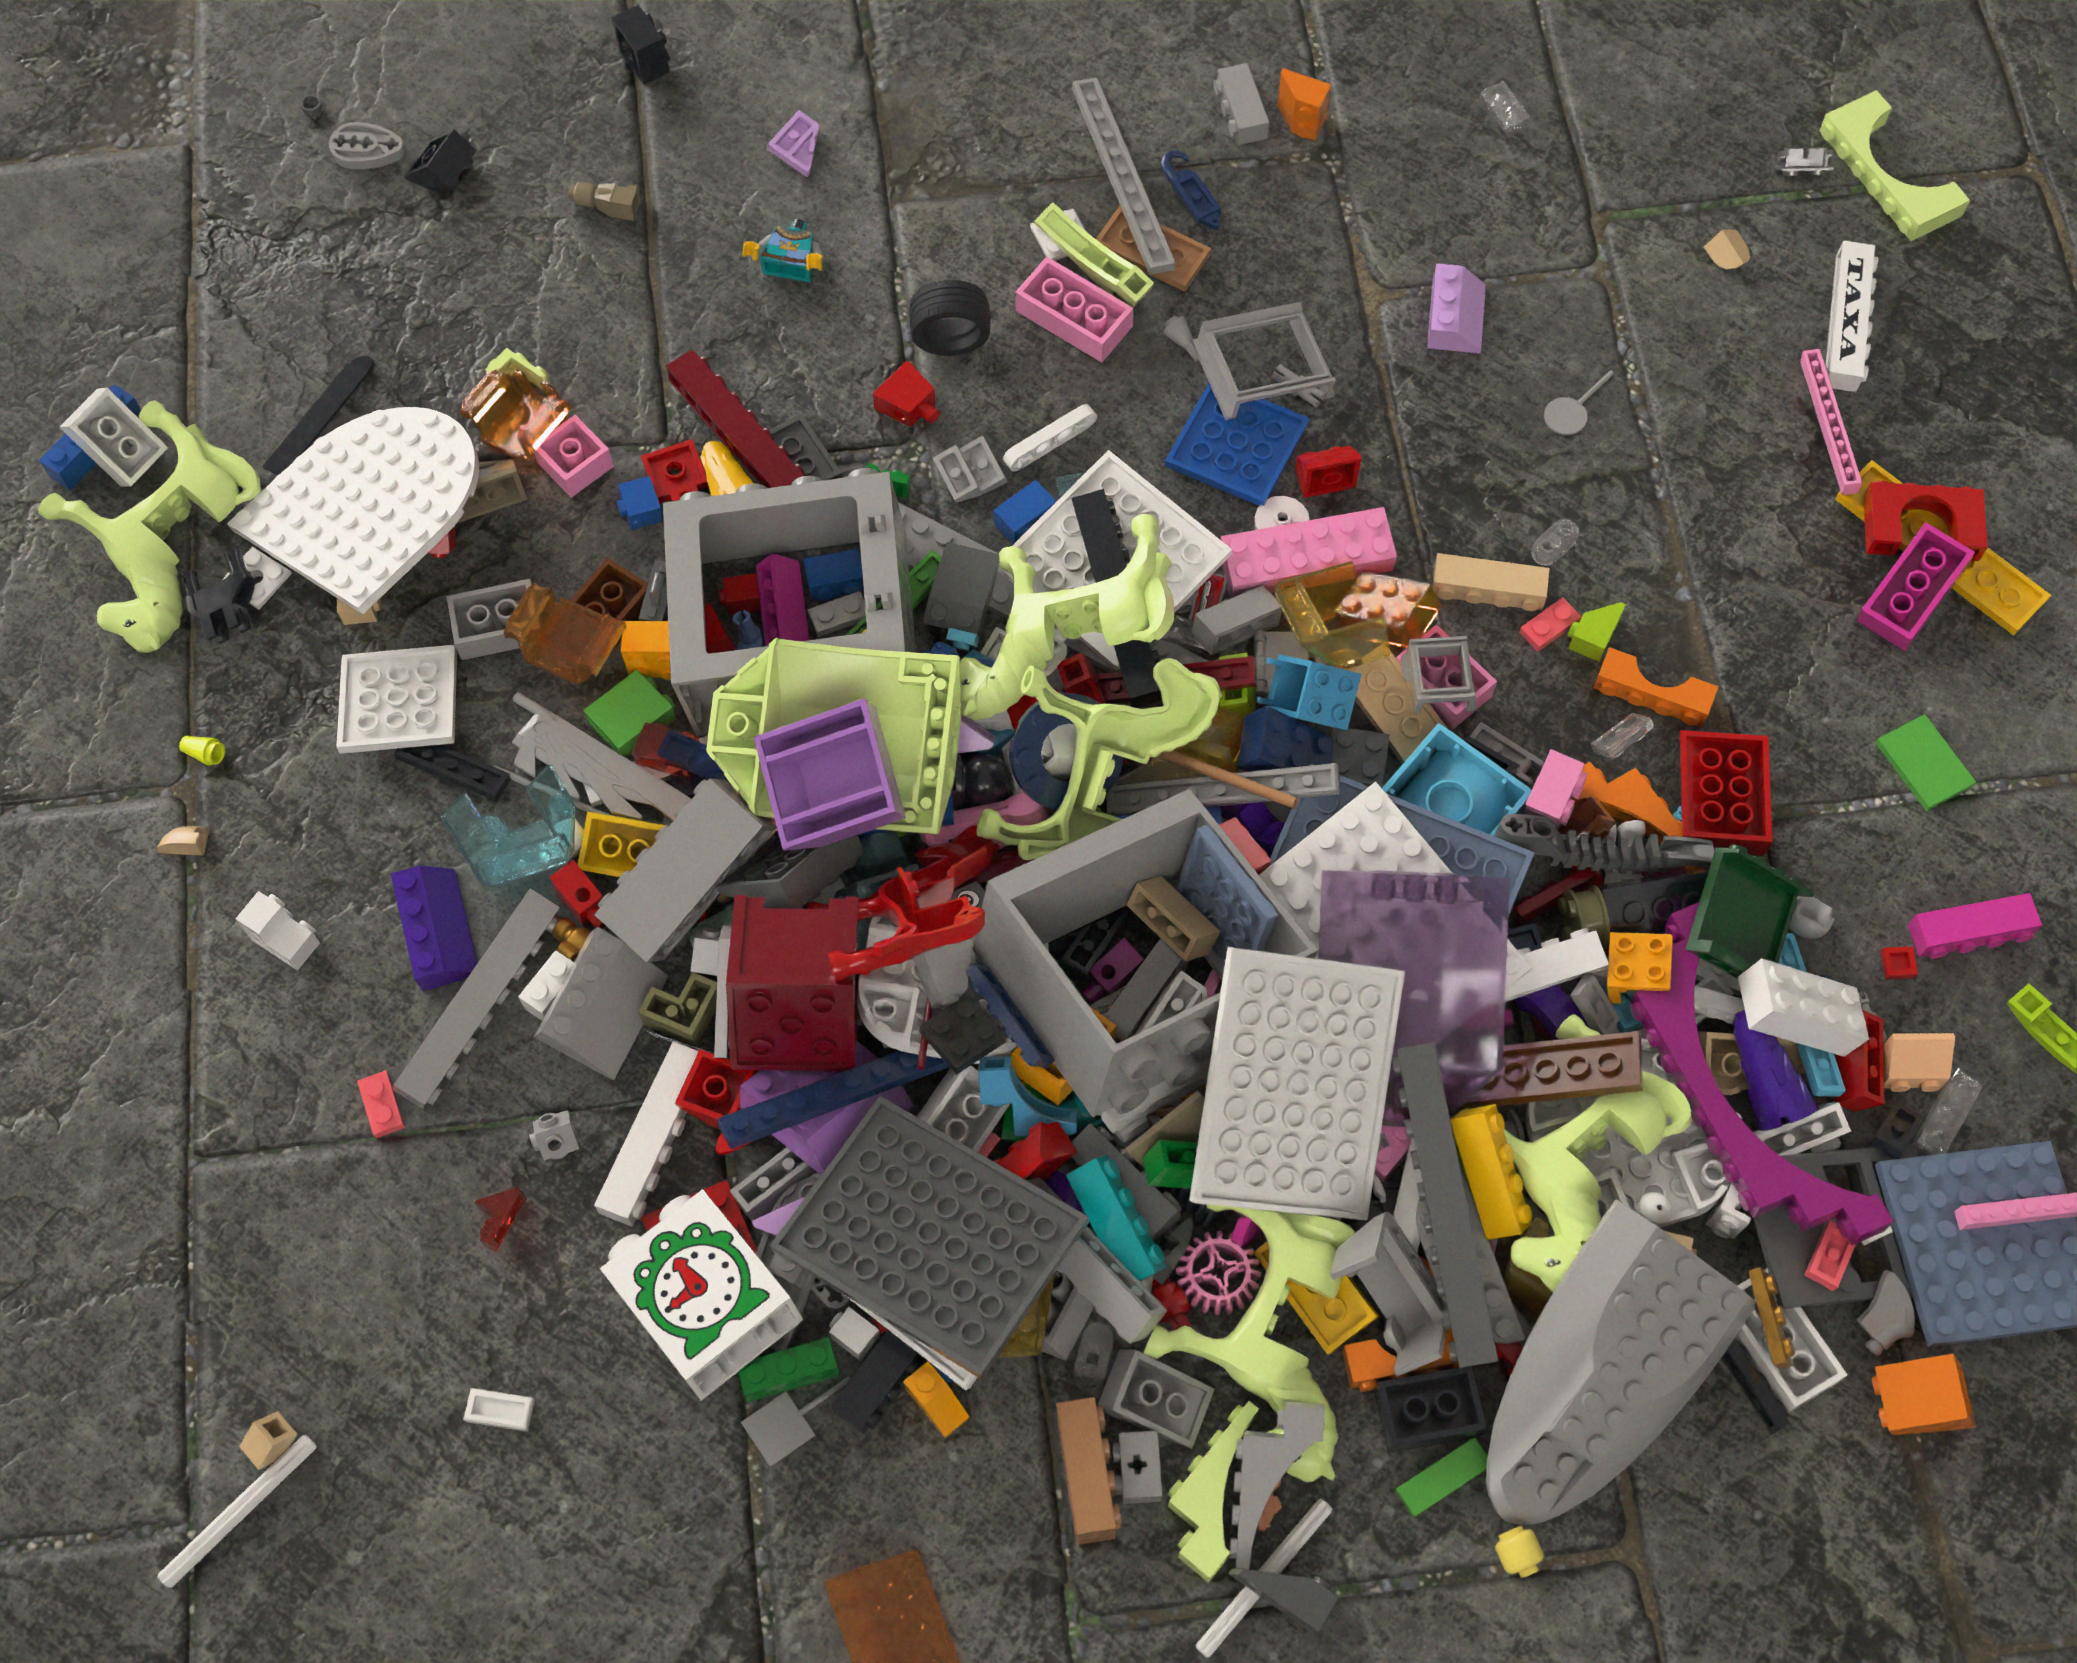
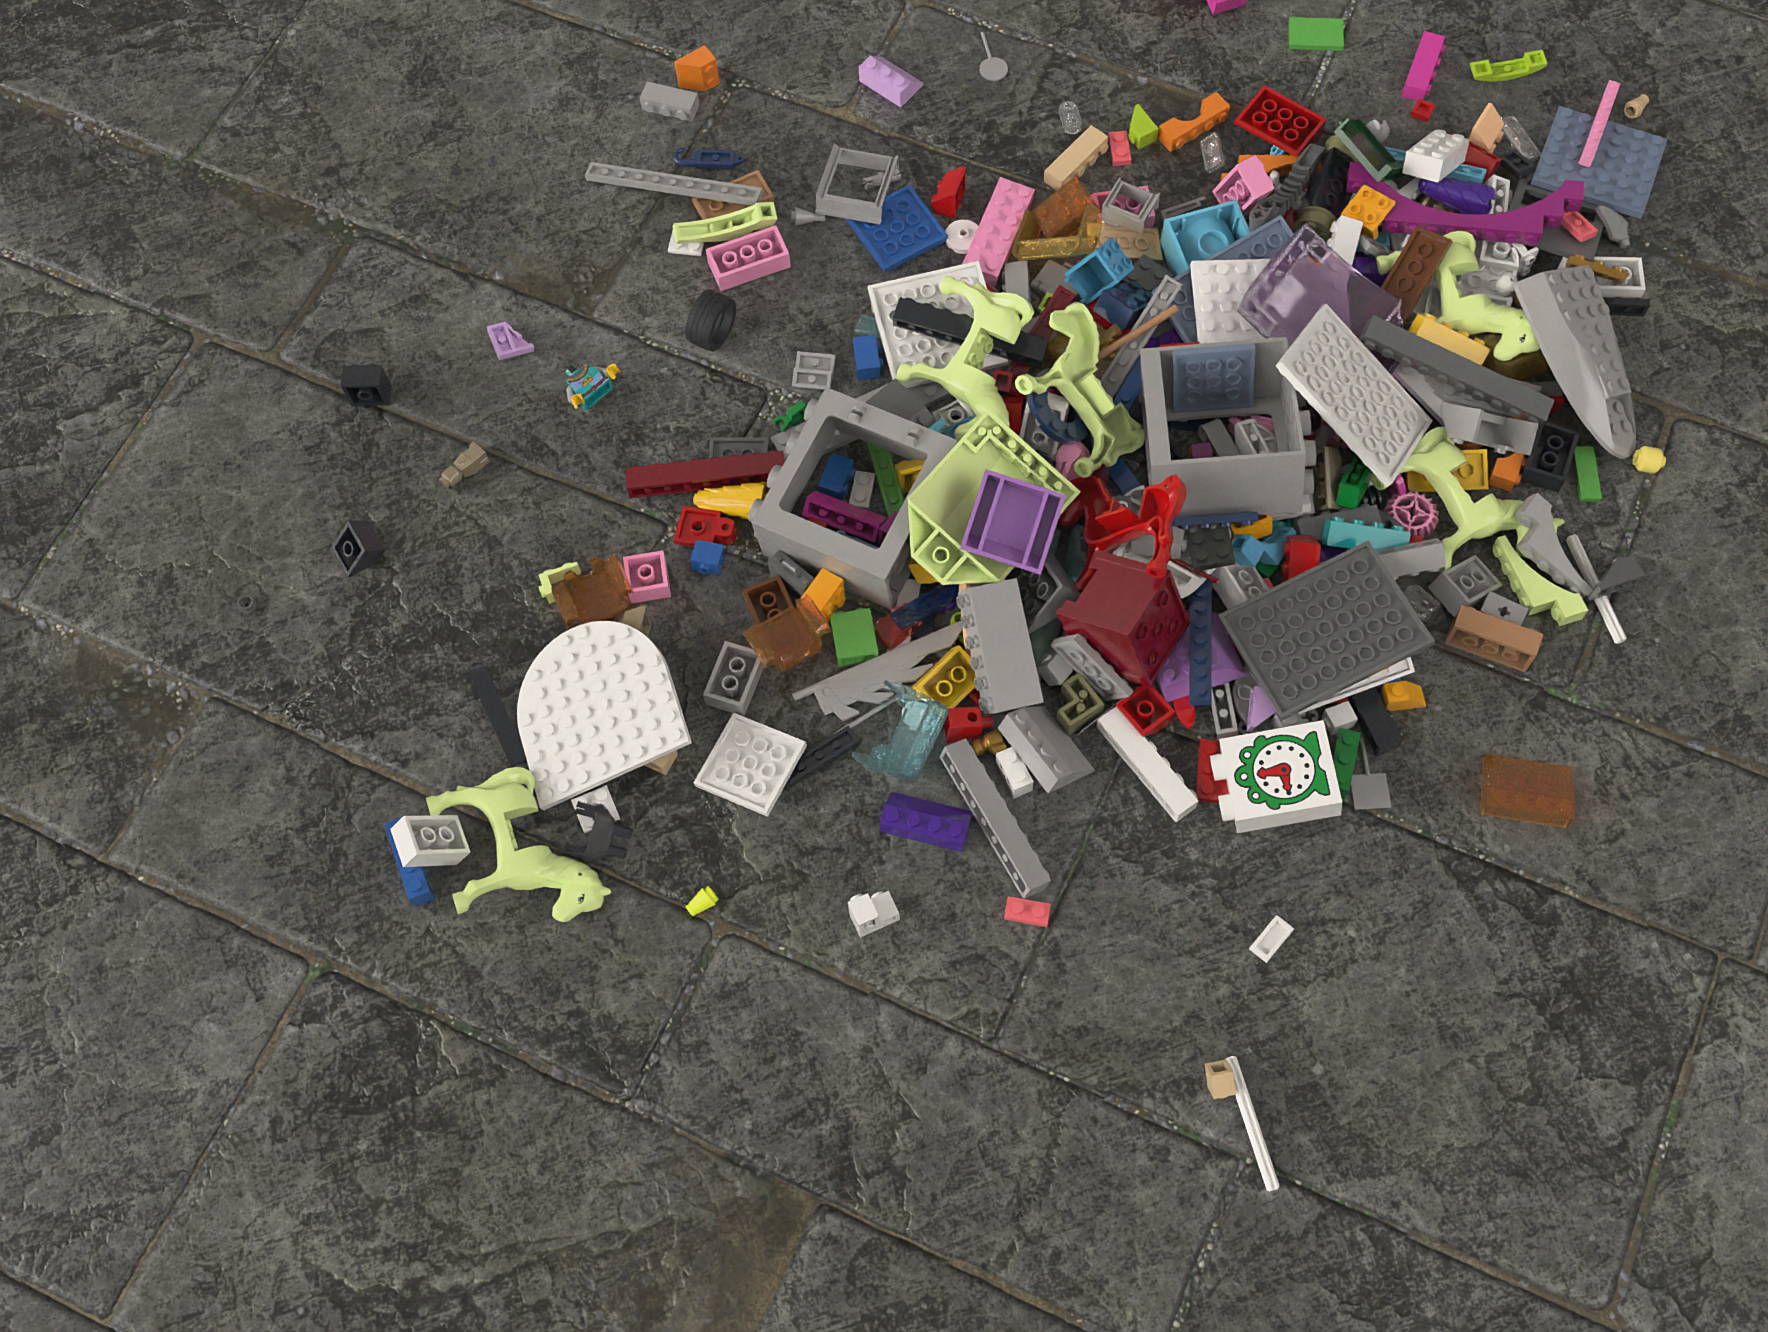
camera: 55 degrees left, 0 degrees up
(184, 840) = (762, 944): tan brick -> none
(362, 135) = (304, 576): light grey piece -> none
(504, 1210) = (1146, 871): clear red slope -> none
(554, 1135) = (1116, 817): light grey brick -> none
(906, 397) = (740, 376): red torso -> none
(1050, 437) = (824, 318): white beam -> none
(1173, 918) = (1195, 414): tan brick -> none
(1923, 1396) = (1666, 235): orange slope -> none

